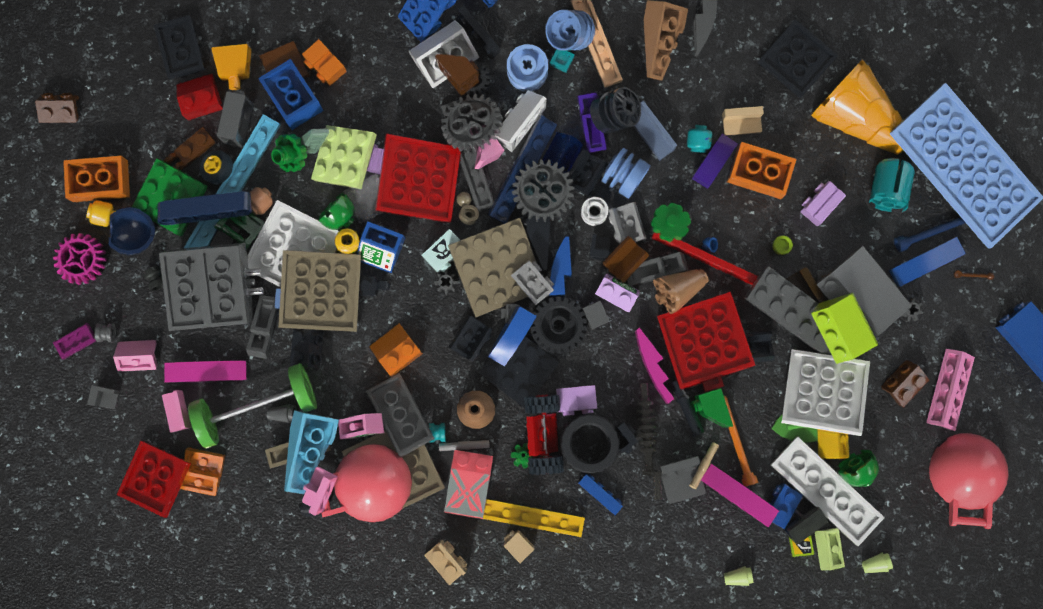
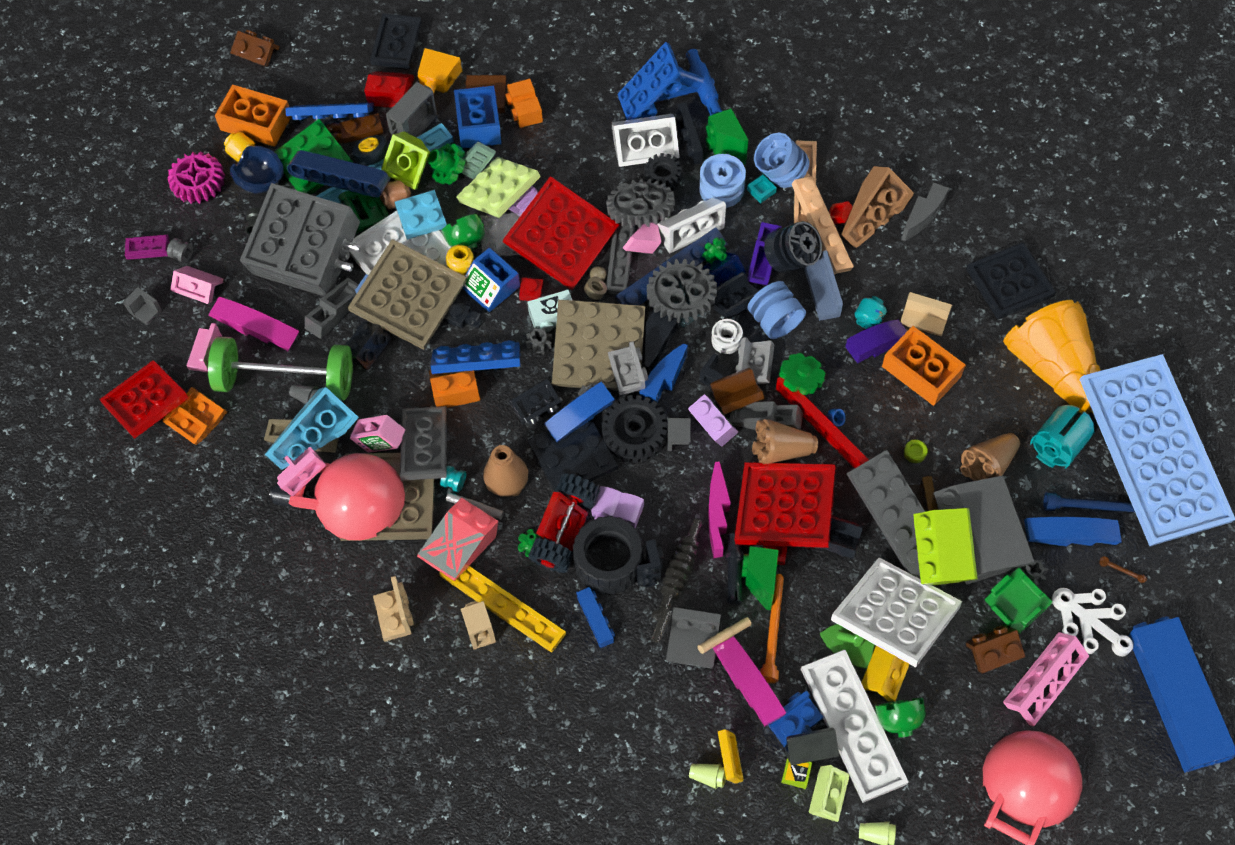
camera: 25 degrees right, 20 degrees down
(160, 144) = (338, 110): none -> blue plate
(253, 166) = (405, 159): none -> lime slope
(291, 212) = (420, 214): none -> medium azure plate
(404, 322) = (475, 357): none -> blue plate
(415, 237) = (530, 289): none -> red plate
(458, 71) = (650, 150): reddish brown slope -> none
(514, 25) = (726, 135): none -> green slope
(552, 138) = (715, 250): none -> green plant
(627, 73) = (821, 220): none -> light nougat plate
(635, 56) = (840, 212): none -> red plate
(749, 557) = (730, 756): none -> yellow tile
(823, 203) = (977, 425): lavender brick -> none
(845, 229) = (989, 457): none -> medium nougat cone
(909, 340) = (1018, 600): none -> green panel
(964, 328) = (1089, 618): none -> white plant

